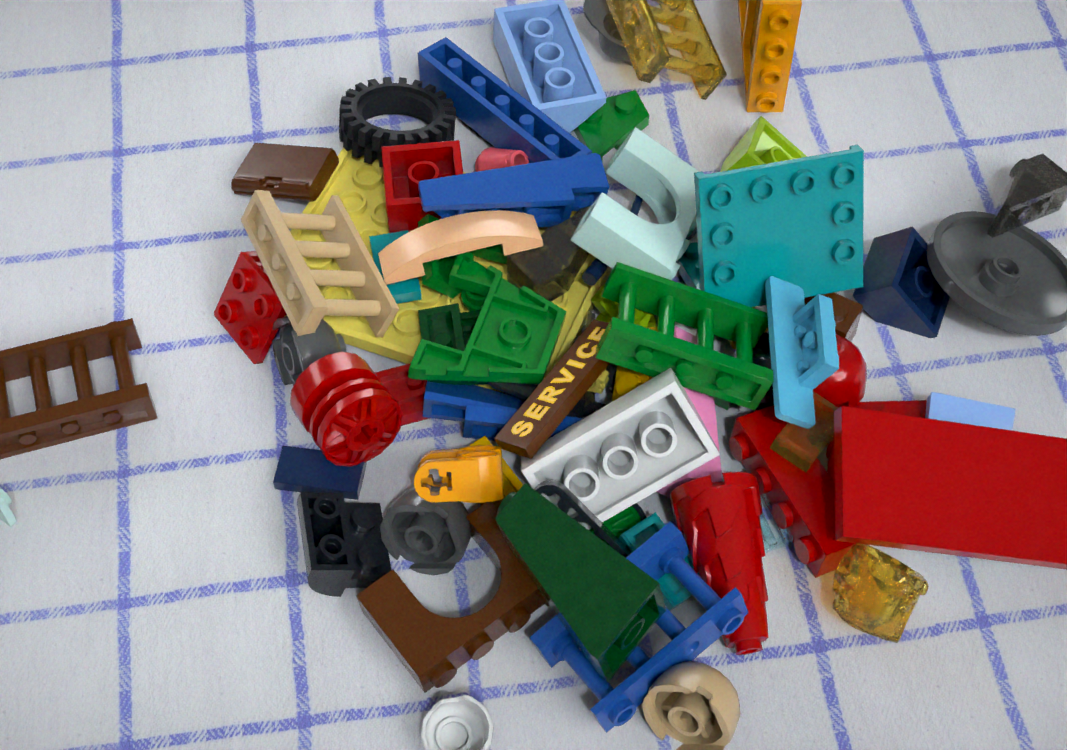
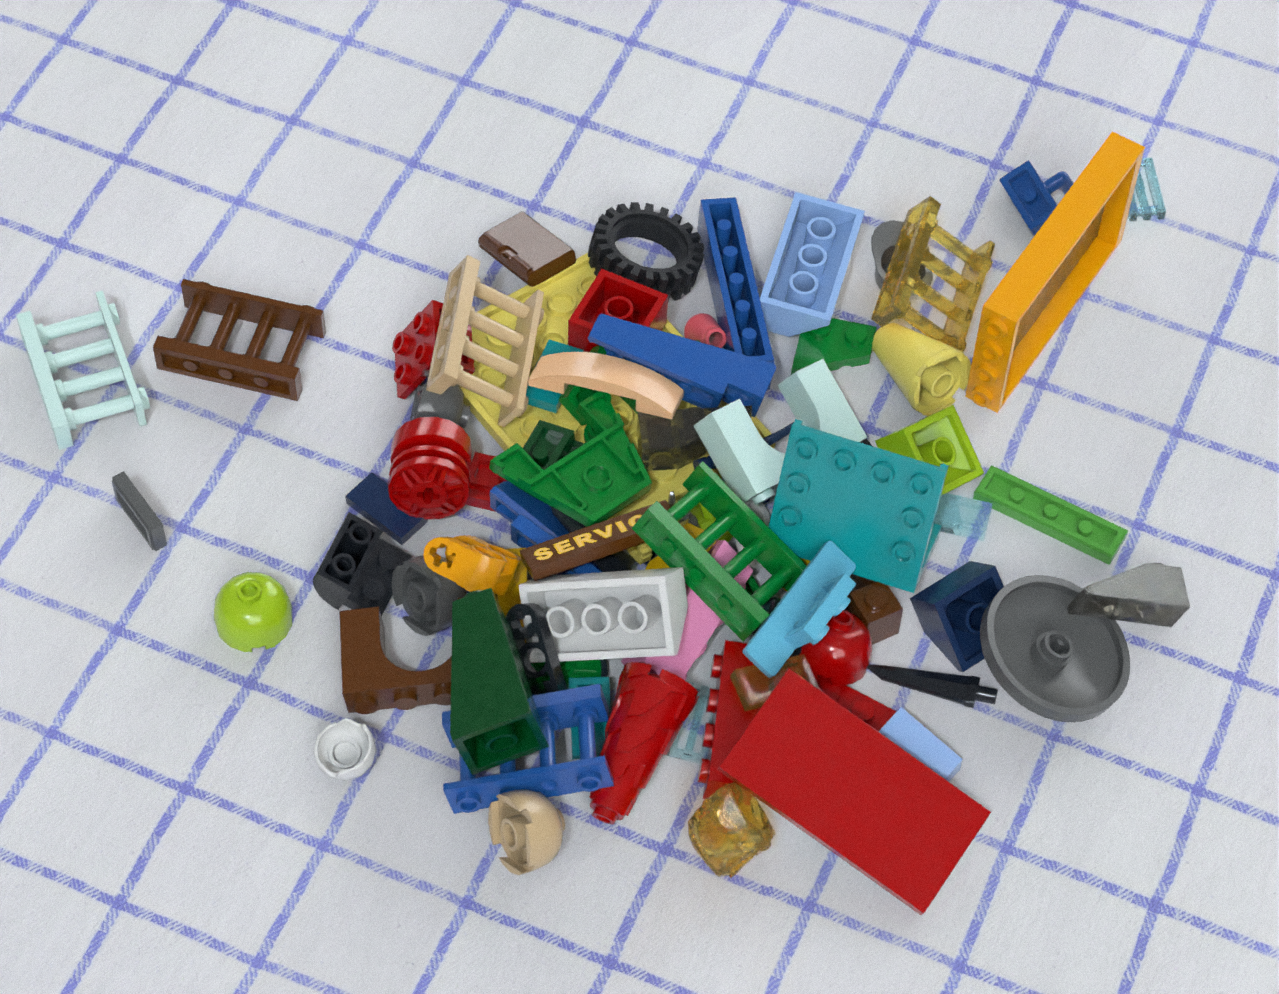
camera: 30 degrees right, 0 degrees up
(71, 611) = (139, 511): none -> dark grey tile
(260, 647) = (252, 612): none -> lime cylinder
(700, 100) = (921, 367): none -> light yellow cone
(917, 169) = (1051, 515): none -> bright green tile
(935, 355) = (947, 686): none -> black bar

